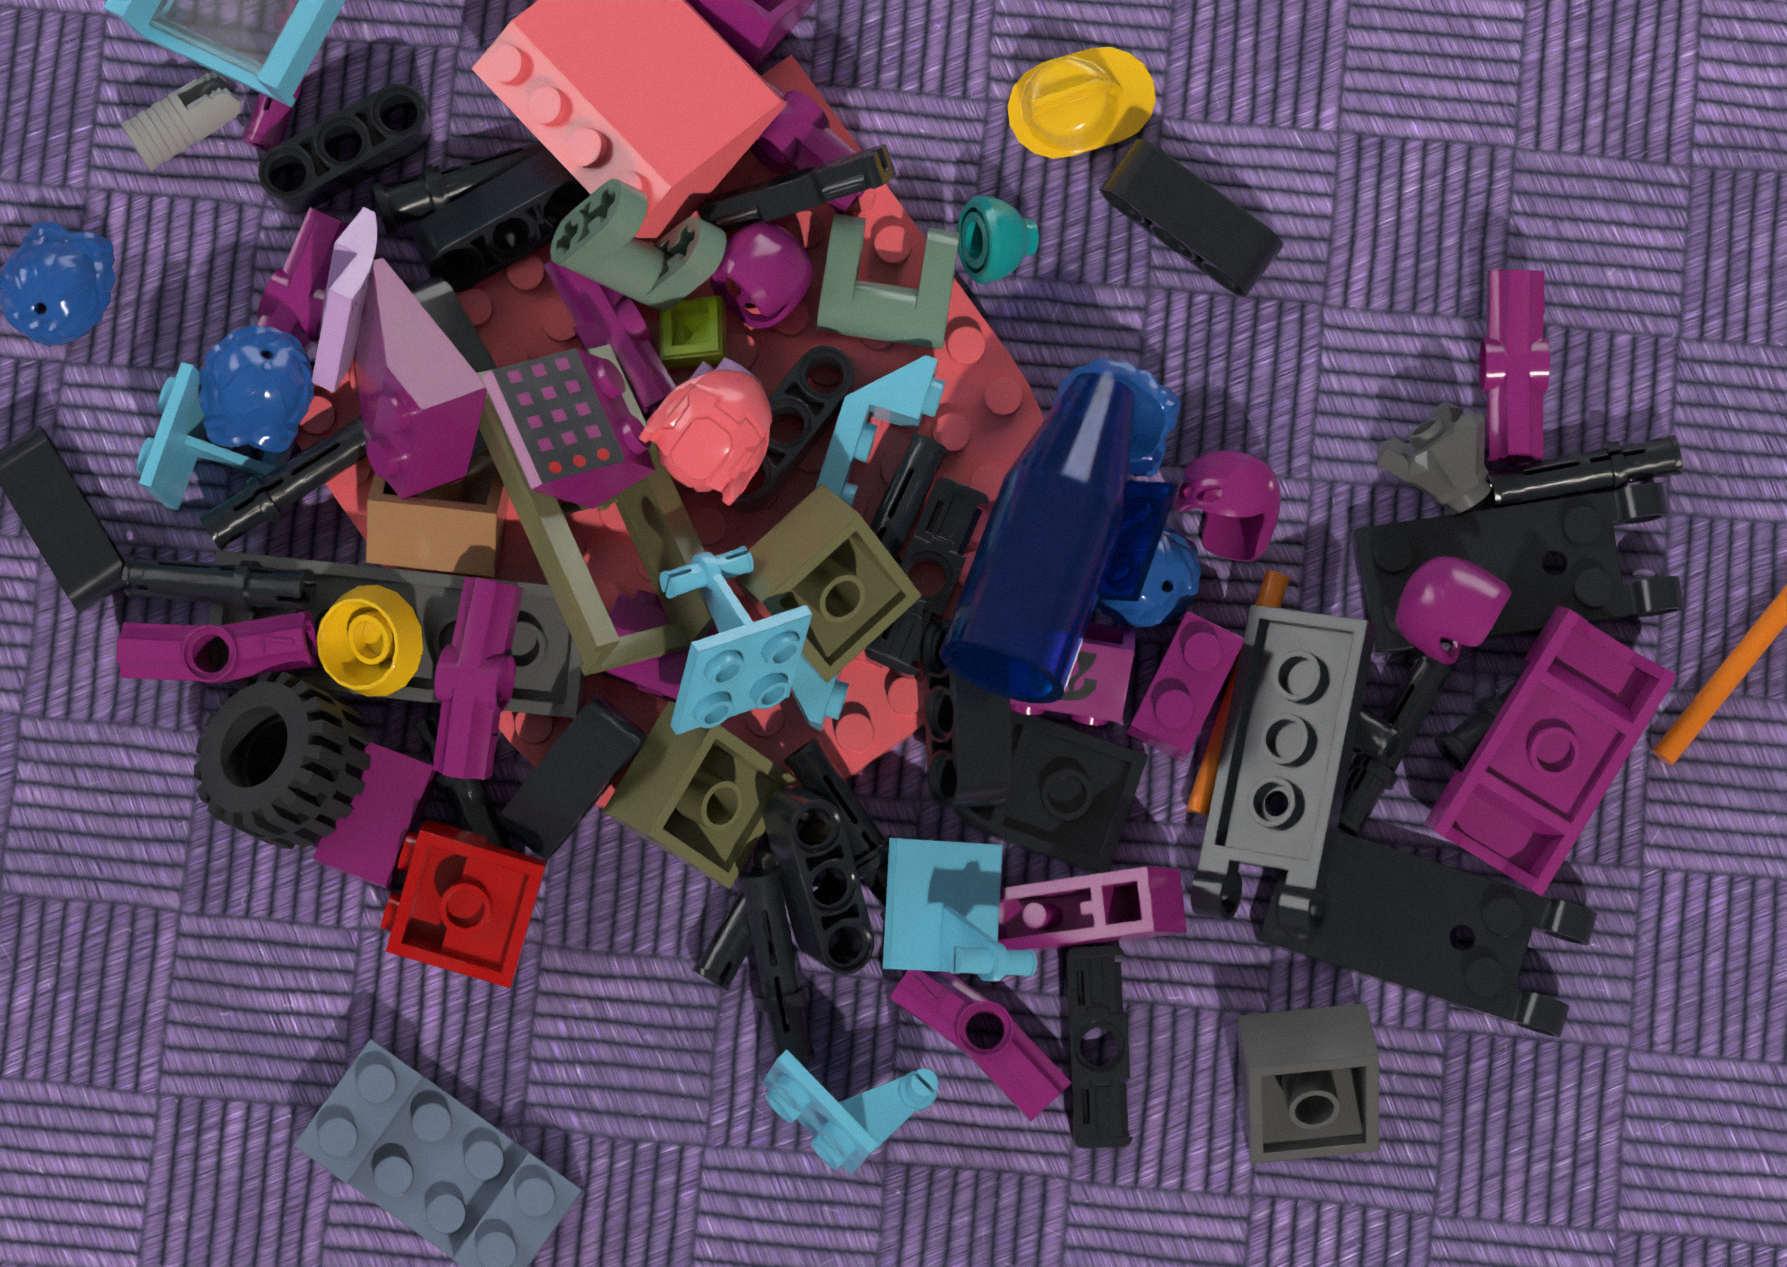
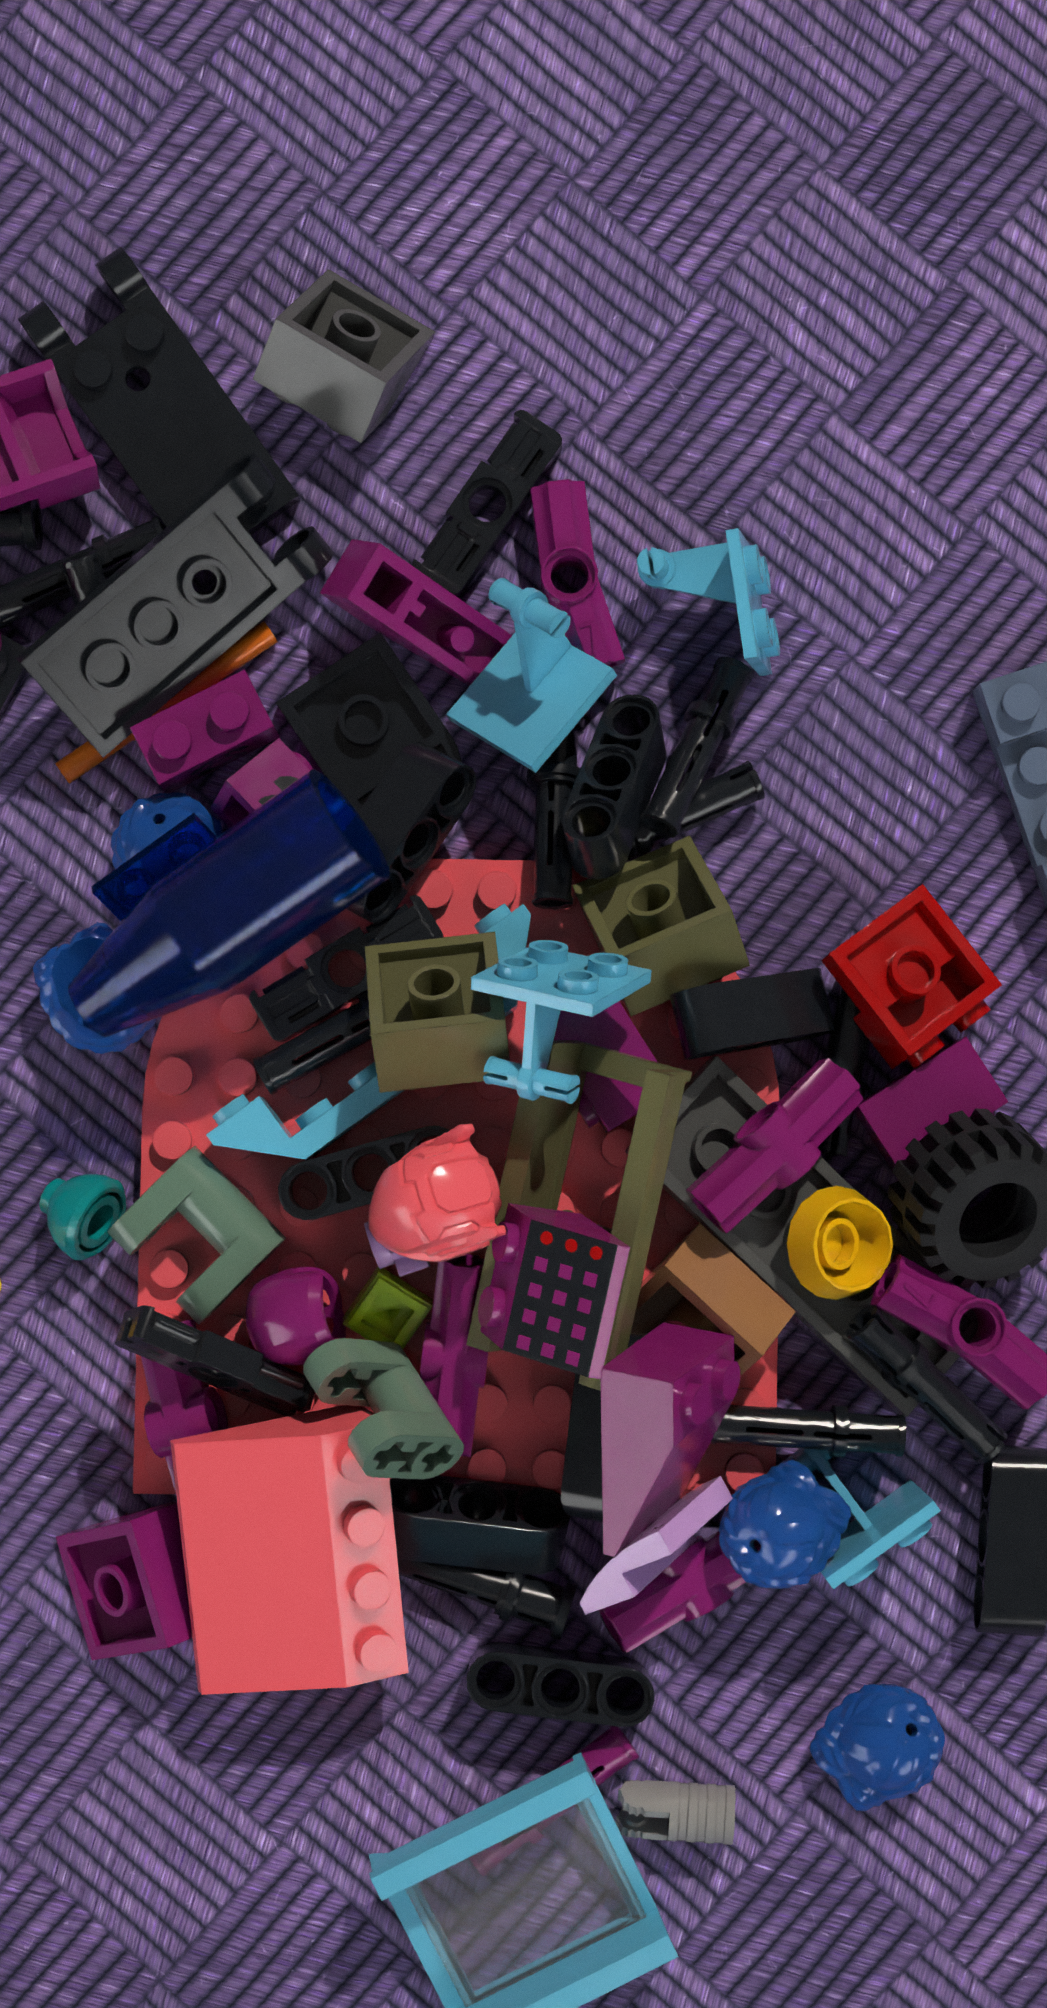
camera: 140 degrees left, 5 degrees up
(1238, 502) = (52, 849): magenta helmet -> none

